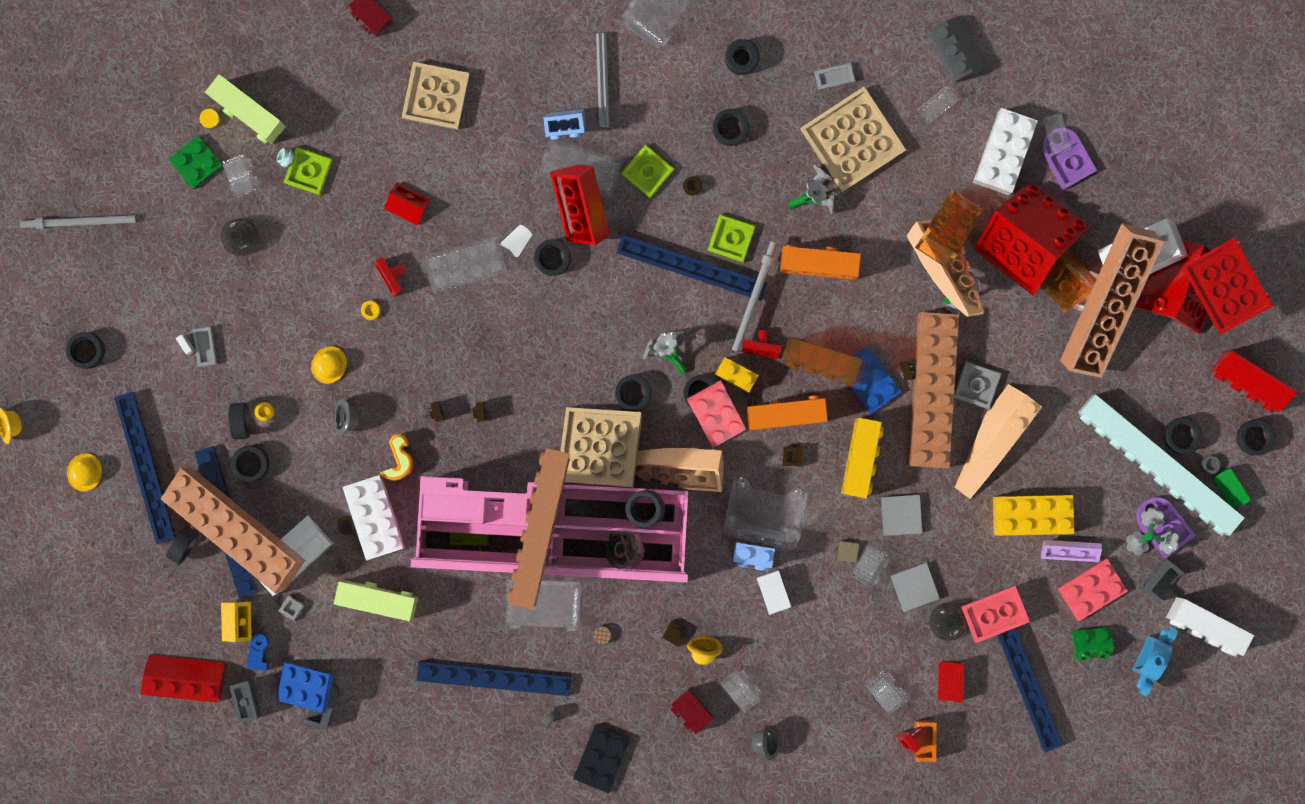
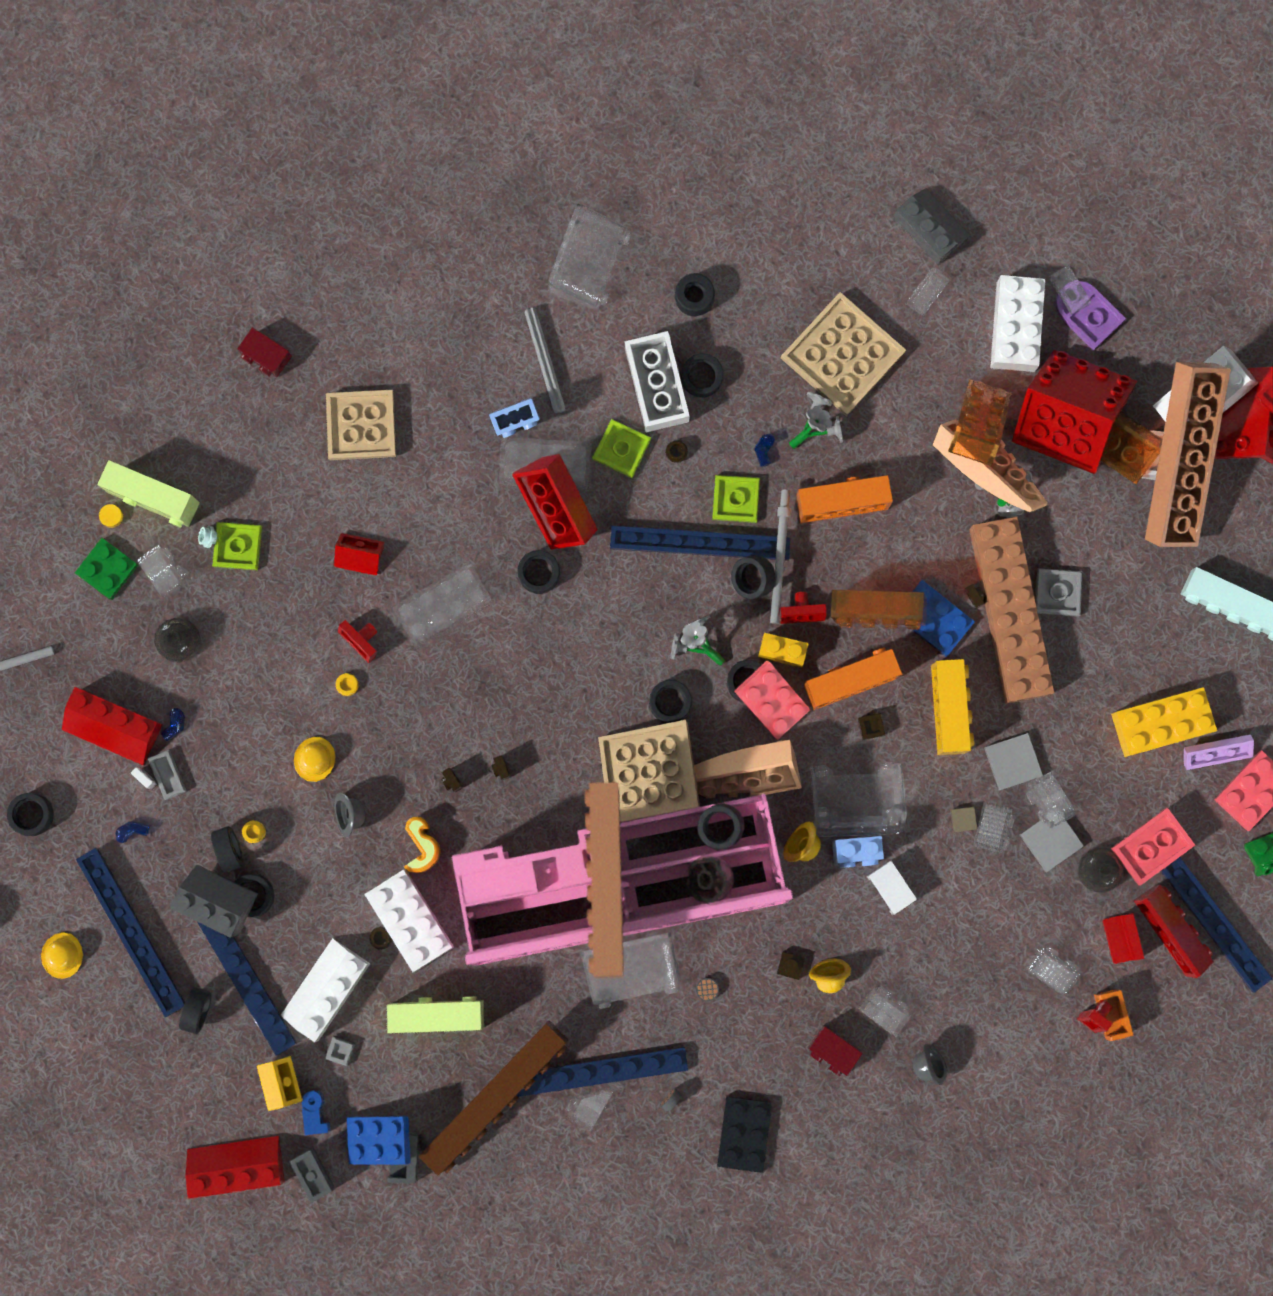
camera: 10 degrees left, 5 degrees down
(162, 383) = (126, 830): none -> clear blue arm
(167, 294) = (110, 726): none -> red slope
(218, 461) = (214, 901): none -> dark grey slope
(222, 307) = (177, 722): none -> clear blue arm
(233, 529) = (249, 976): nougat brick -> none
(405, 678) = (493, 1098): none -> reddish brown brick
(468, 539) = (524, 917): lime plate -> none
(481, 704) = (588, 1107): none -> clear slope
(517, 240) = (494, 563): white sticker -> none
(691, 123) = (657, 381): none -> white brick
(710, 538) = (802, 844): none -> yellow hat
(716, 308) = (767, 576): none -> black tyre
(764, 201) = (762, 448): none -> clear blue arm
(834, 76) = (804, 290): light grey tile -> none
(922, 554) = (1050, 800): none -> clear brick
(993, 686) = (1174, 931): none -> red slope
(996, 436) = (1096, 645): light nougat wedge -> none

